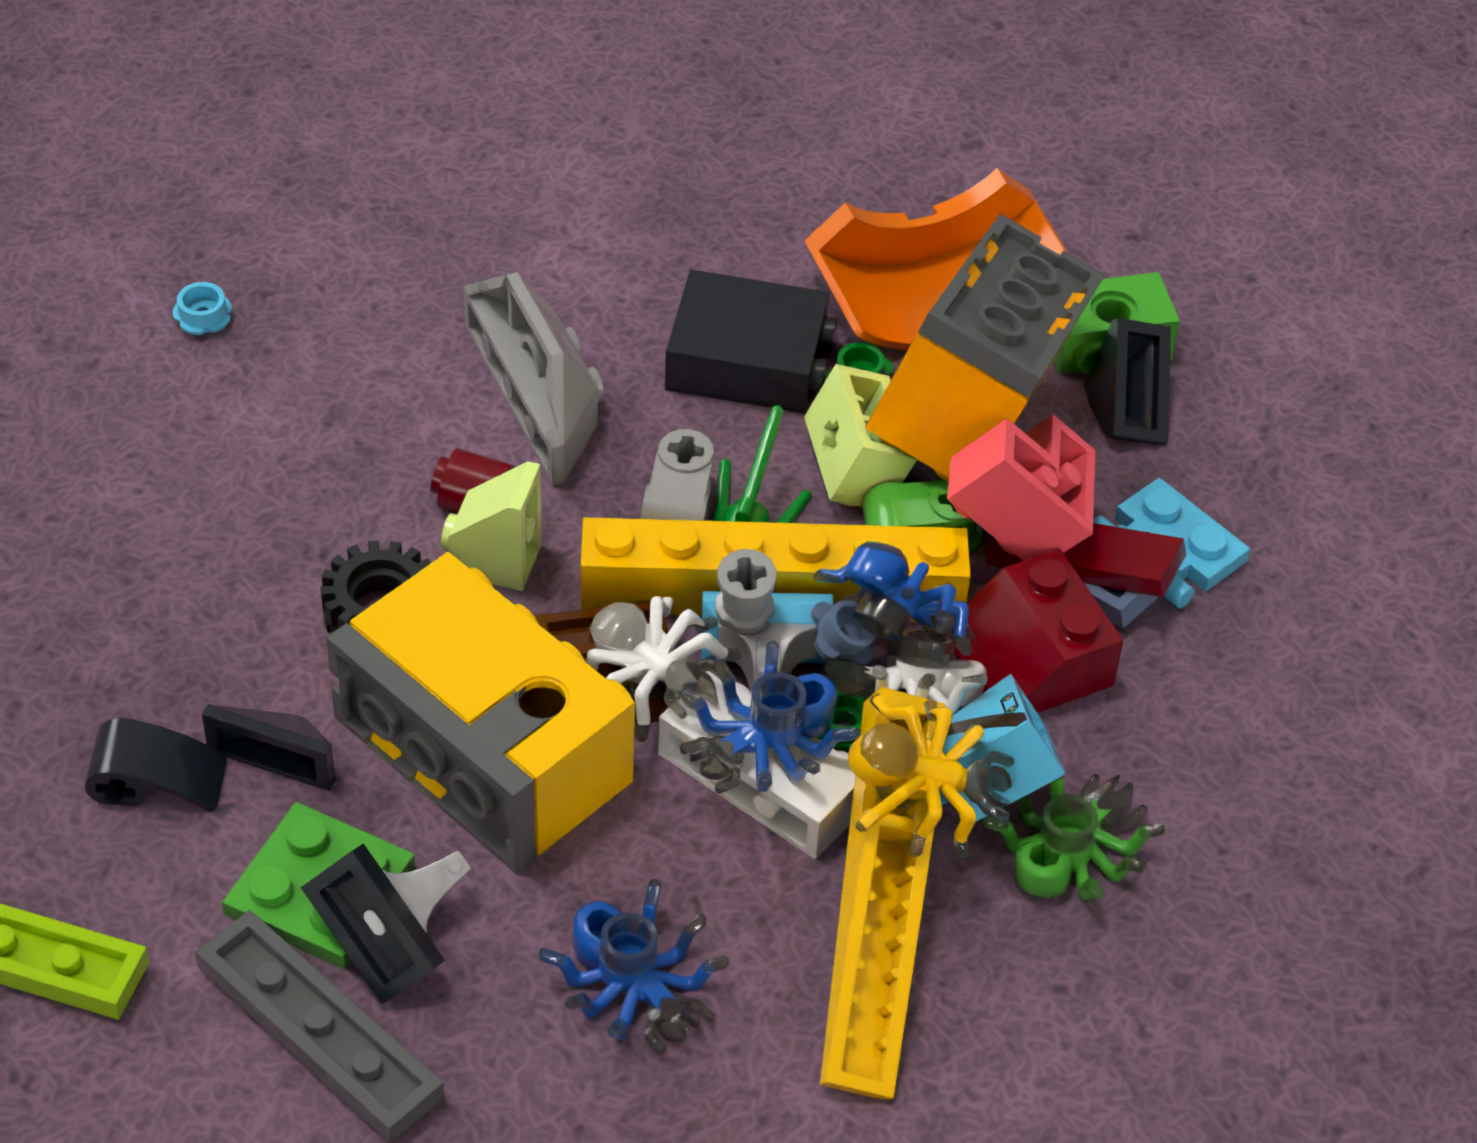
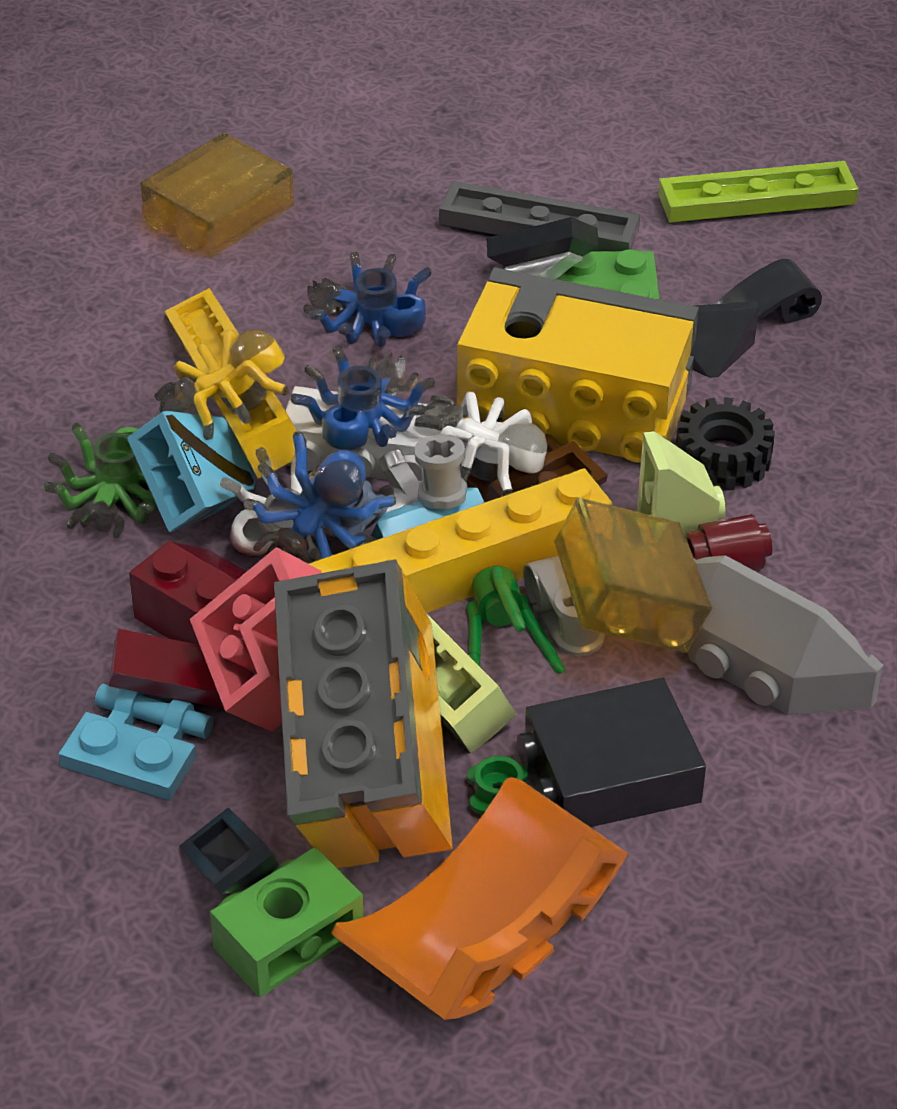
camera: 155 degrees right, 5 degrees down
(630, 426) = (632, 575): none -> clear yellow brick

